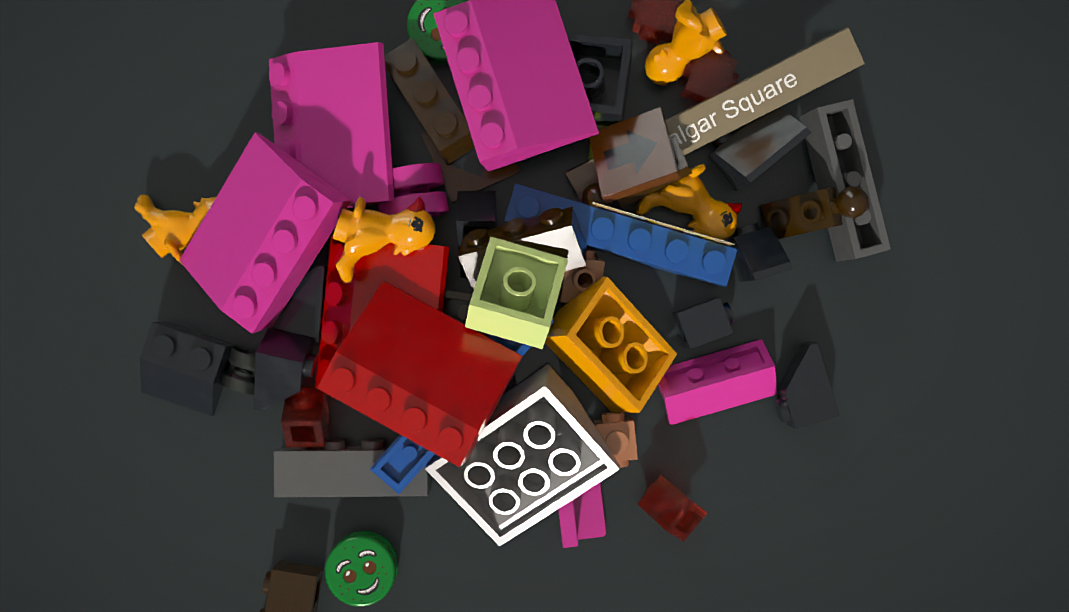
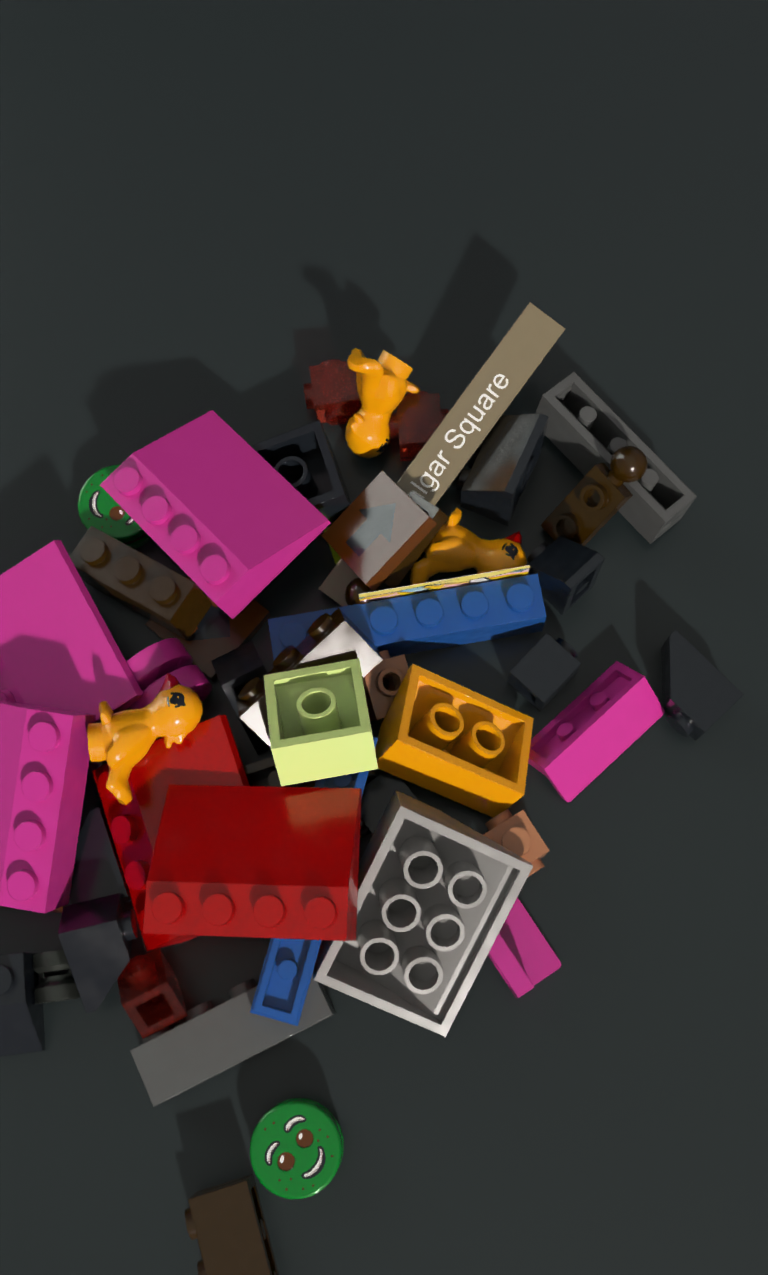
camera: 20 degrees left, 15 degrees down
(671, 508) = (618, 890): clear red brick -> none

